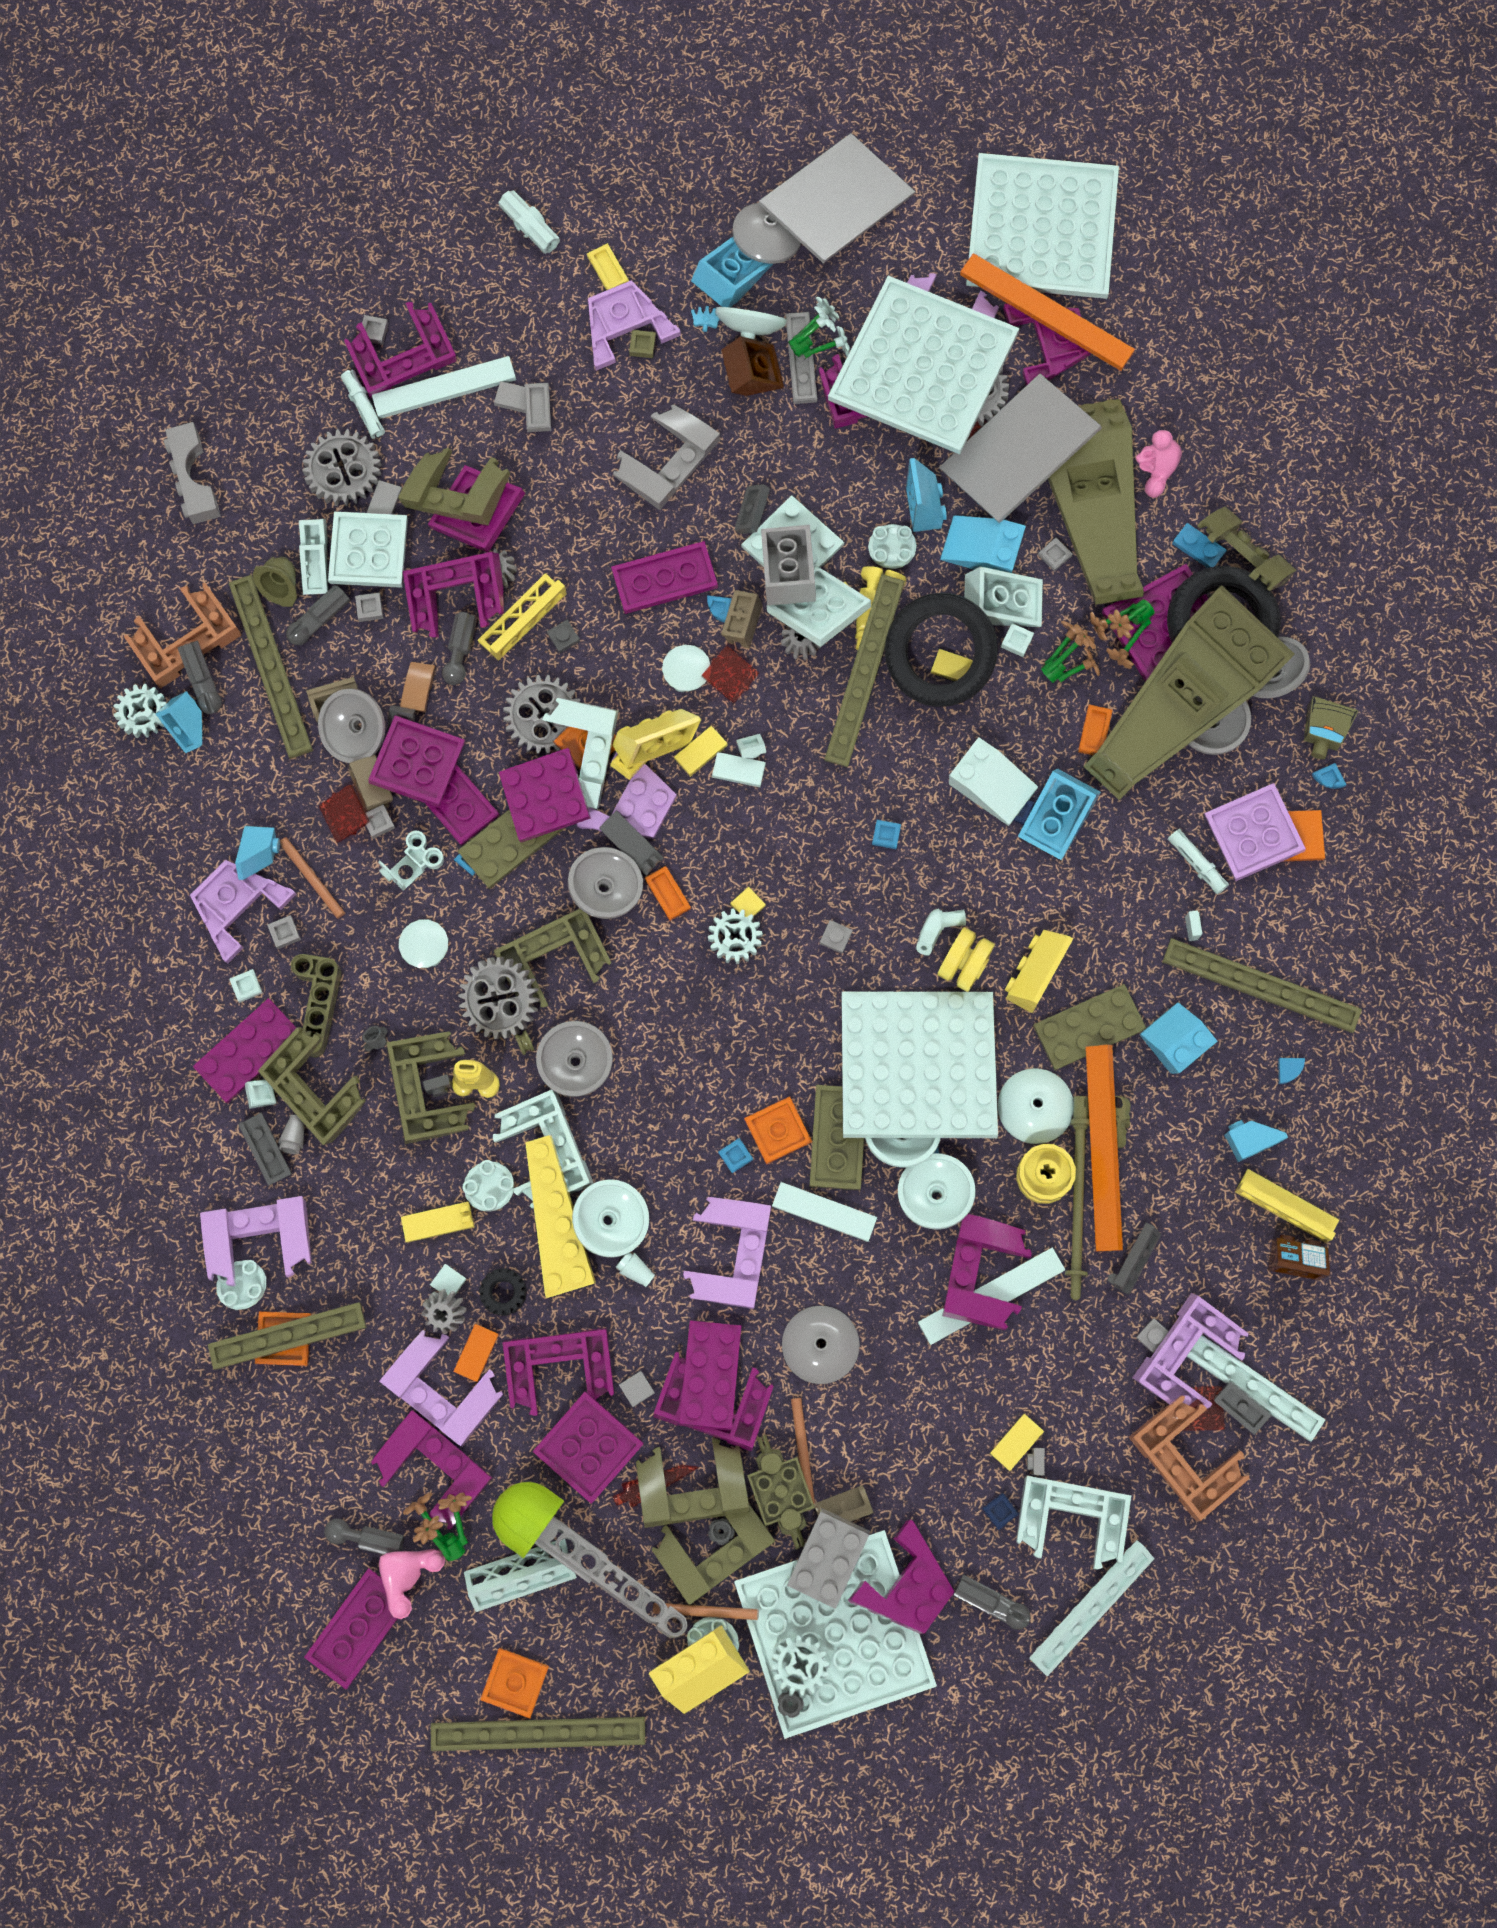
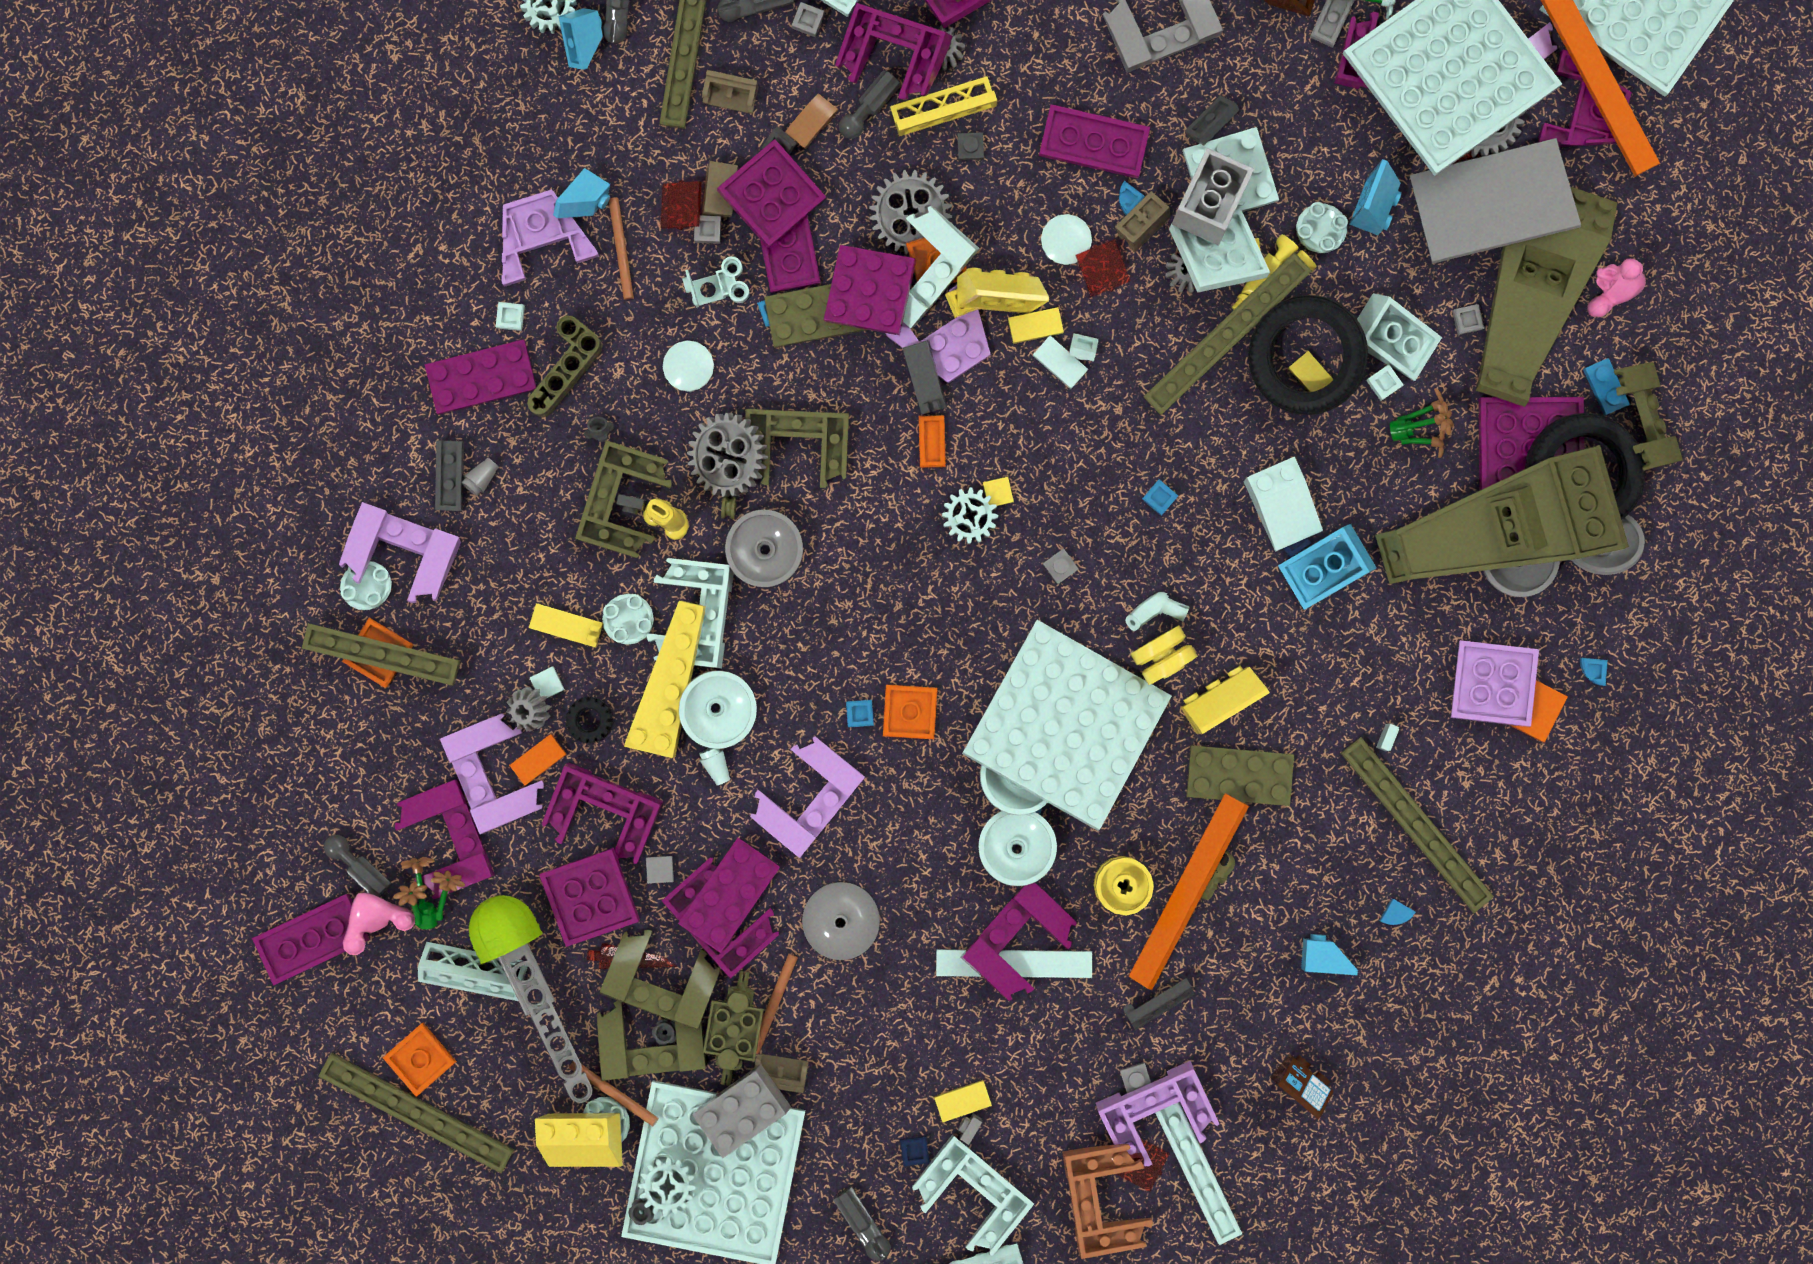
camera: 30 degrees right, 10 degrees up
(259, 1094) = (471, 422): light aqua tile -> none
(281, 1073) = (511, 478): olive wedge -> none
(284, 932) = (569, 286): light grey plate -> none
(340, 721) = (720, 122): light grey dish -> none
(608, 869) = (893, 393): light grey dish -> none
(824, 1212) = (909, 807): light aqua tile -> none
(834, 1159) = (943, 766): olive plate -> none
(918, 1591) = (803, 1180): magenta wing -> none
(983, 543) = (1406, 273): medium azure slope -> none
(1024, 1119) = (1132, 814): light aqua dish -> none
(1080, 1123) = (1180, 857): olive bar -> none
(1094, 729) = (1406, 506): orange tile -> none
(1138, 614) = (1509, 421): plant -> none
(1178, 1038) = (1312, 831): medium azure slope -> none
(1204, 868) = (1427, 681): light aqua pin -> none
(1242, 1407) = (1176, 1182): dark grey plate -> none
(1287, 1206) = (1321, 1032): light yellow fence -> none
(1327, 725) = (1621, 622): olive torso -> none

